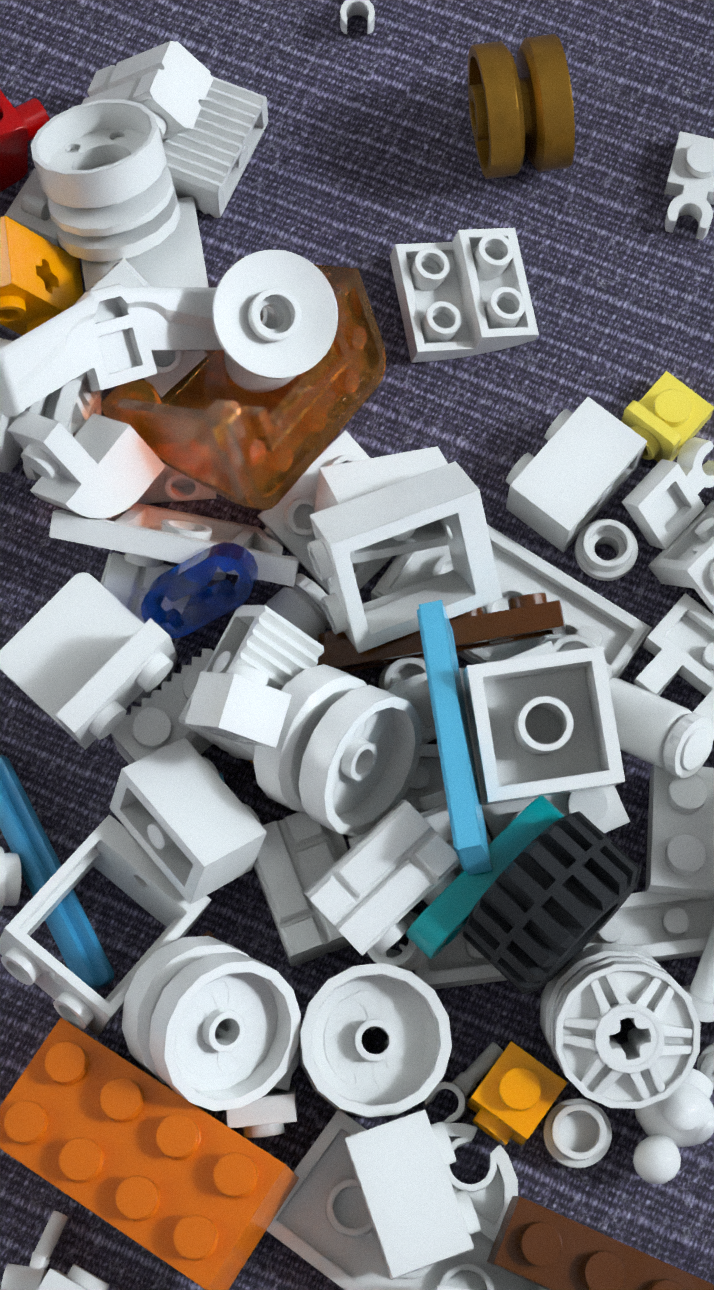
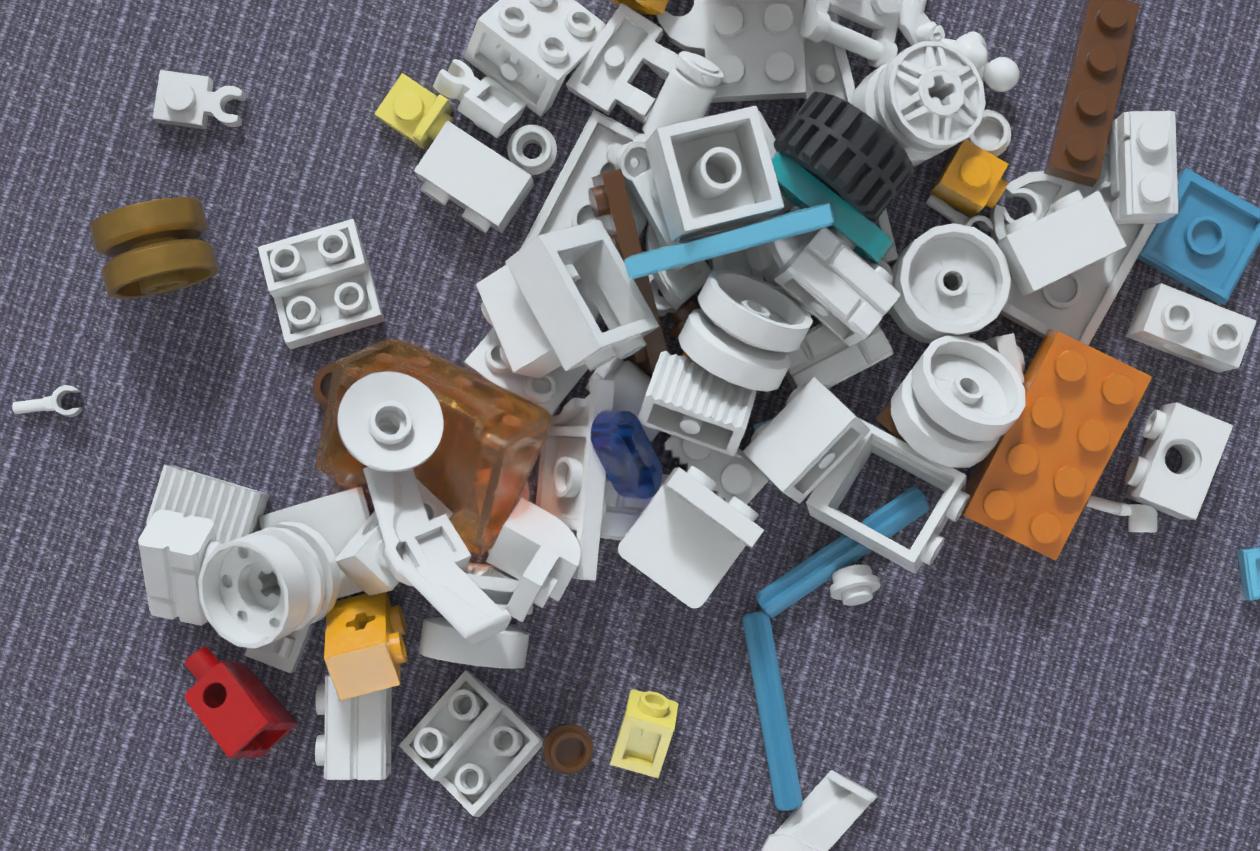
camera: 95 degrees left, 15 degrees up
(239, 706) = (737, 402): white plate -> none

